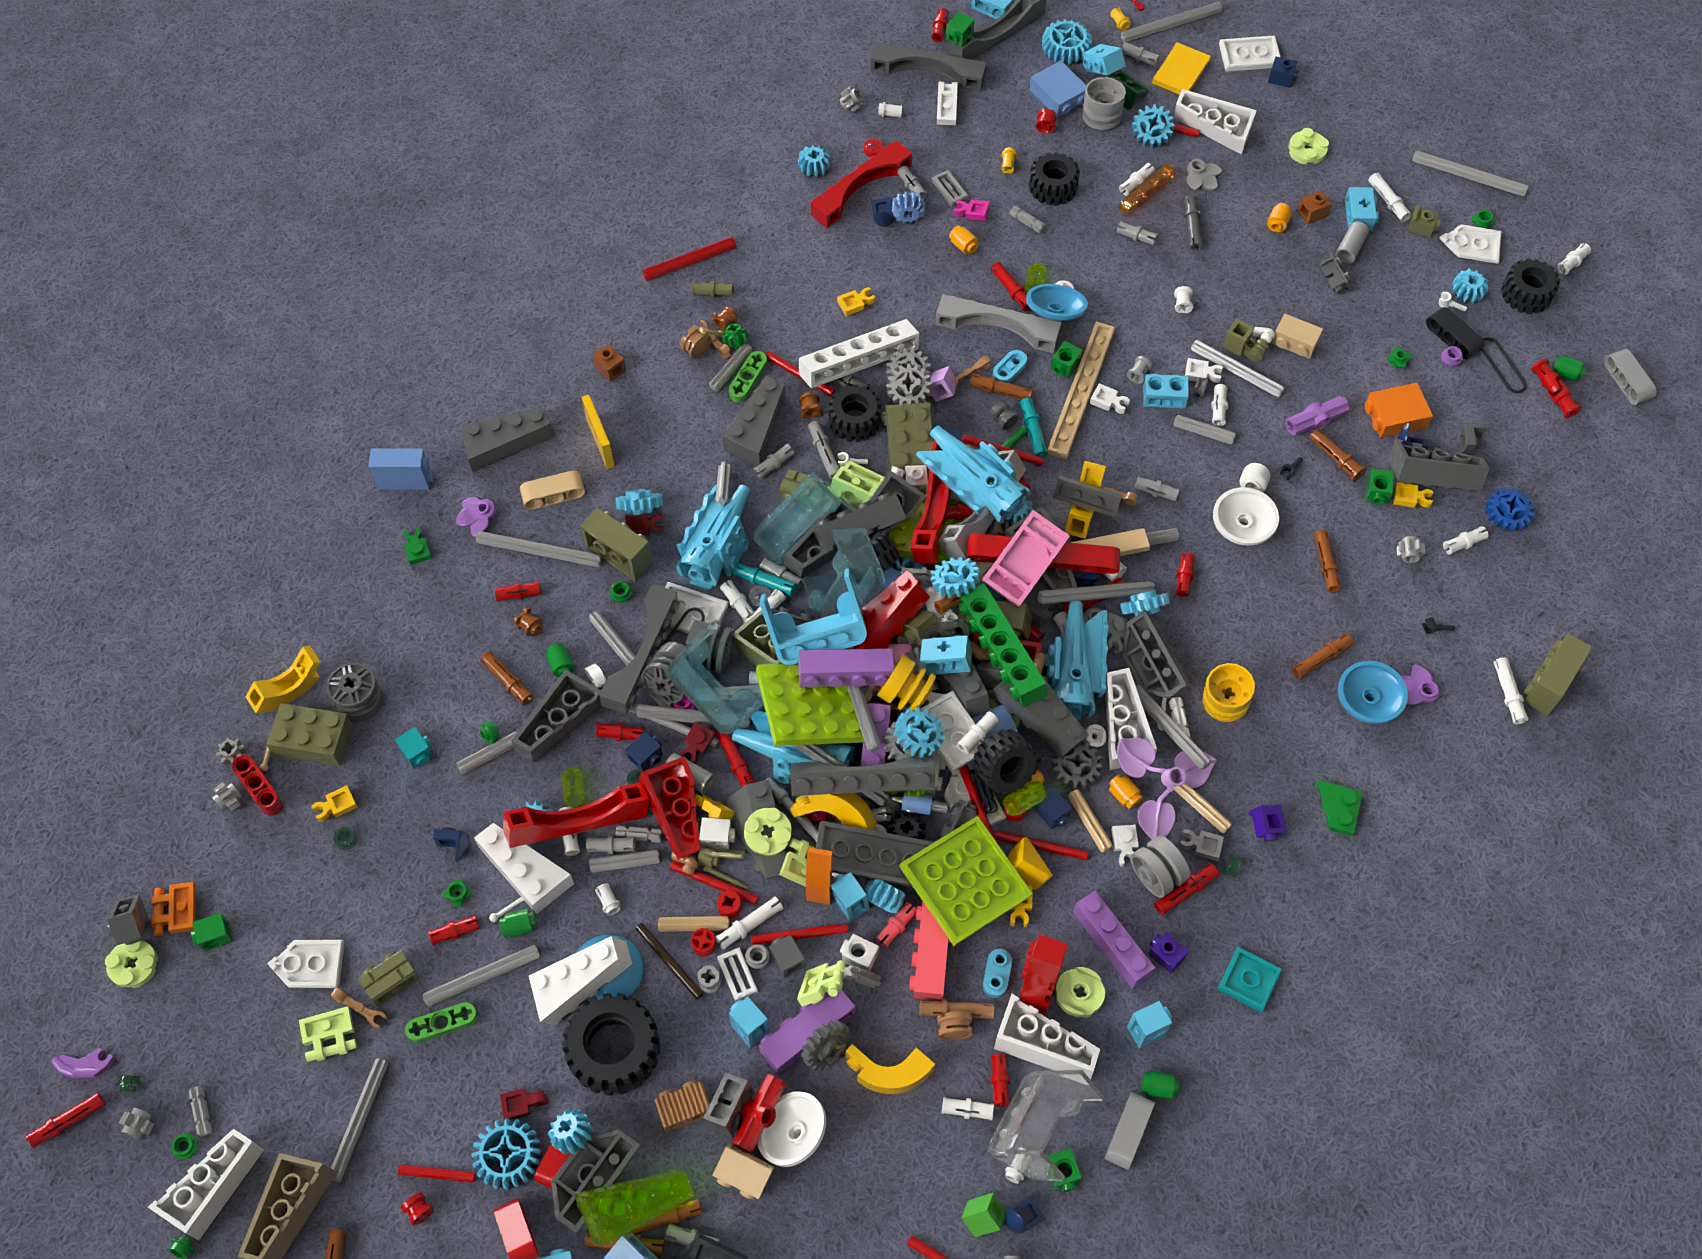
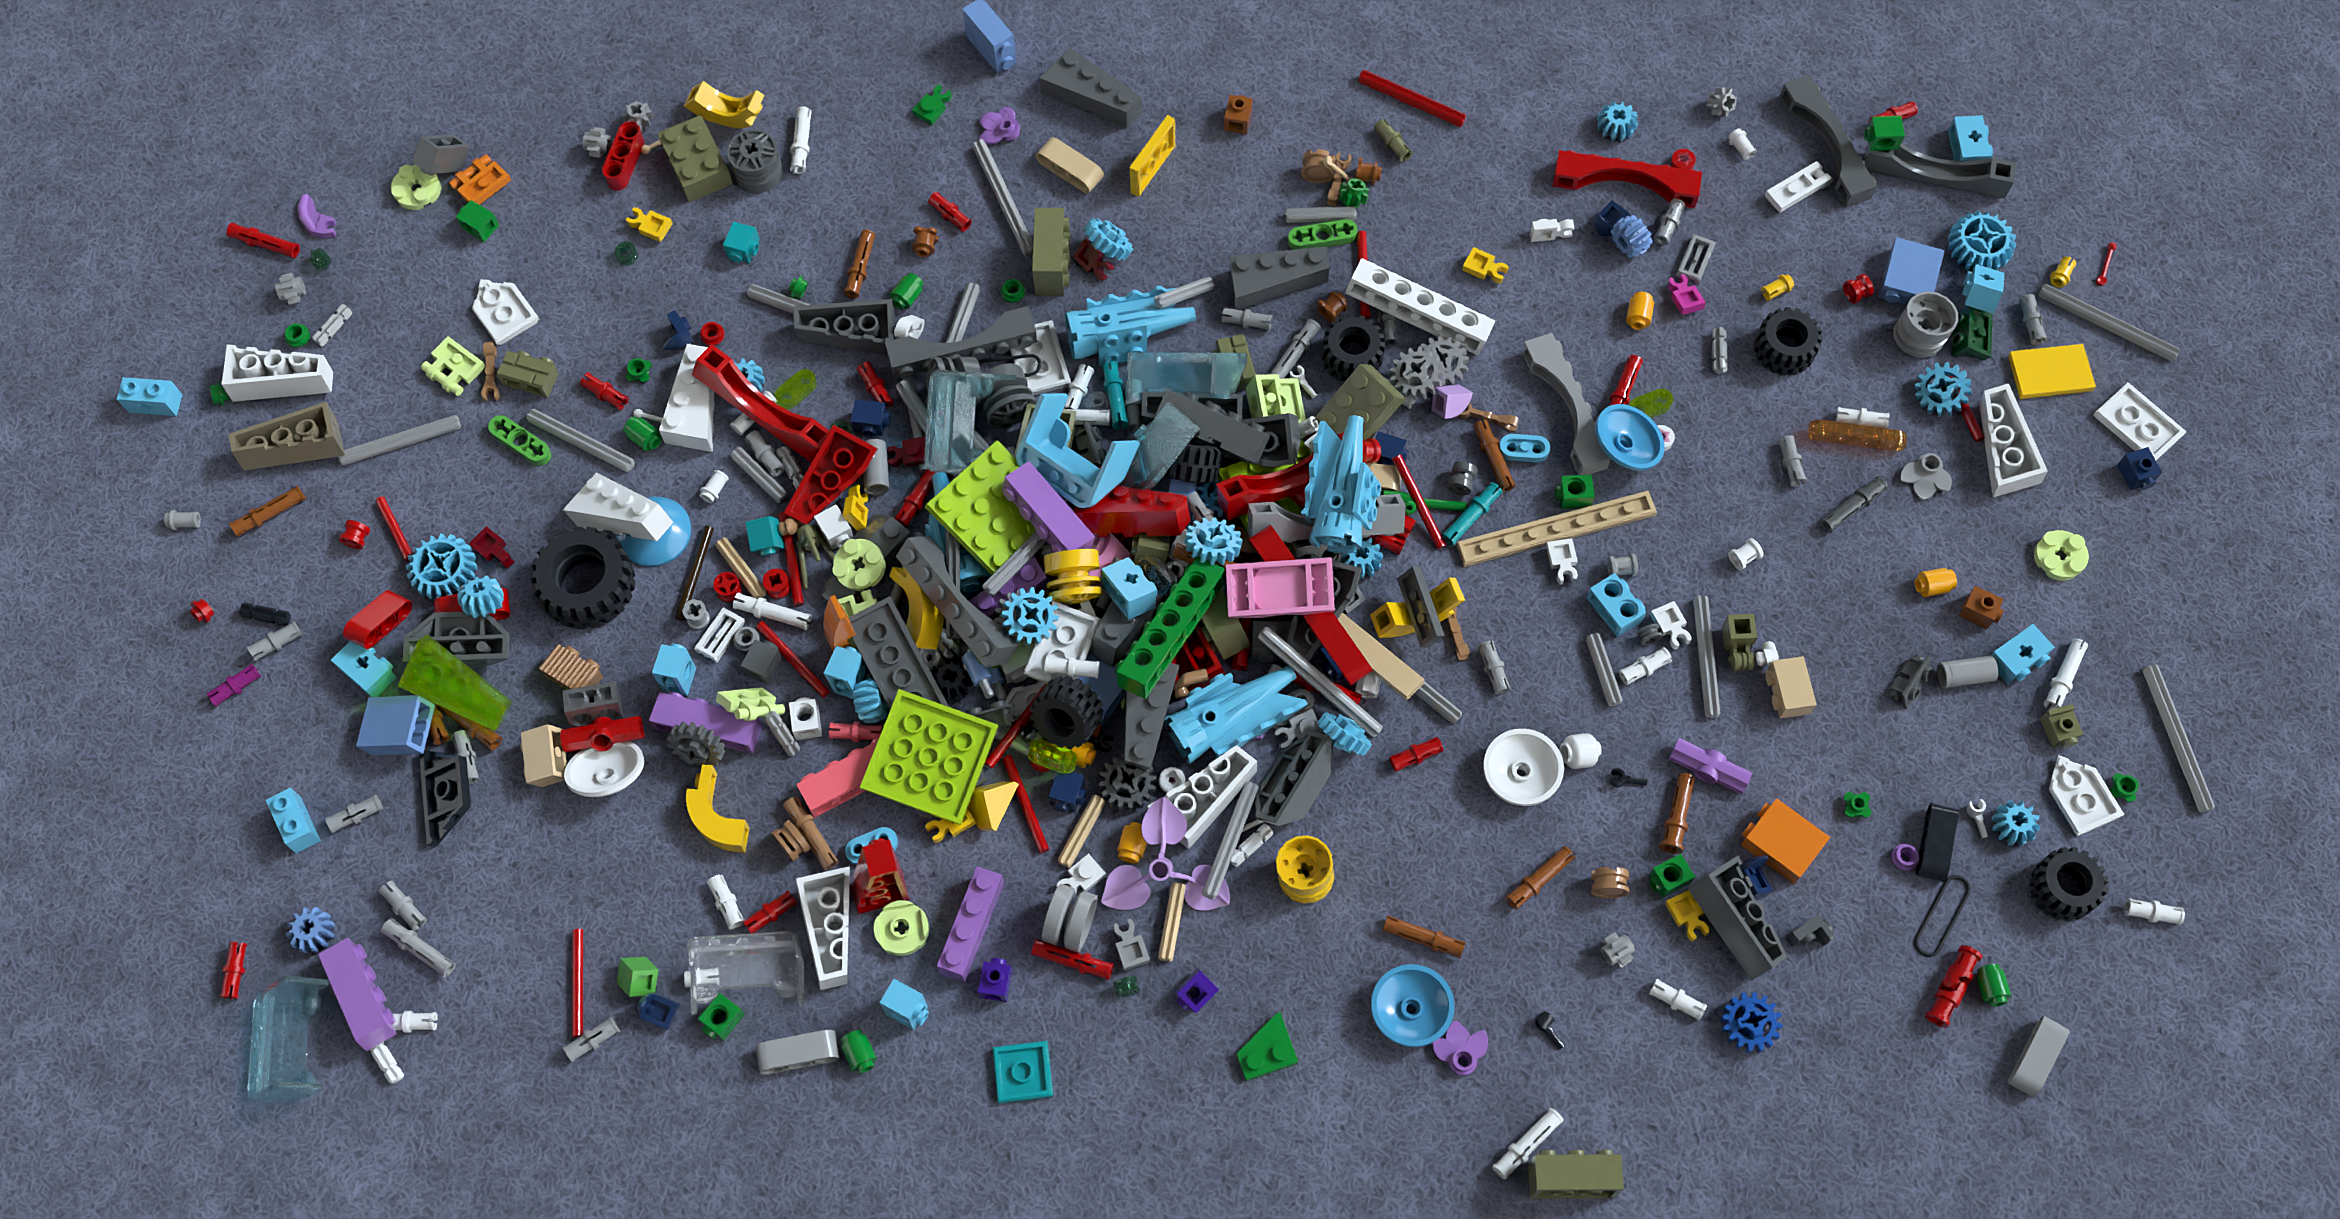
camera: 55 degrees right, 5 degrees up
(368, 656) = (800, 148): none -> white pin
(468, 815) = (712, 327): none -> red plate
(685, 886) = (764, 536): none -> teal brick
(860, 249) = (1549, 229): none -> white plate
(1361, 522) = (1610, 882): none -> medium nougat wheel

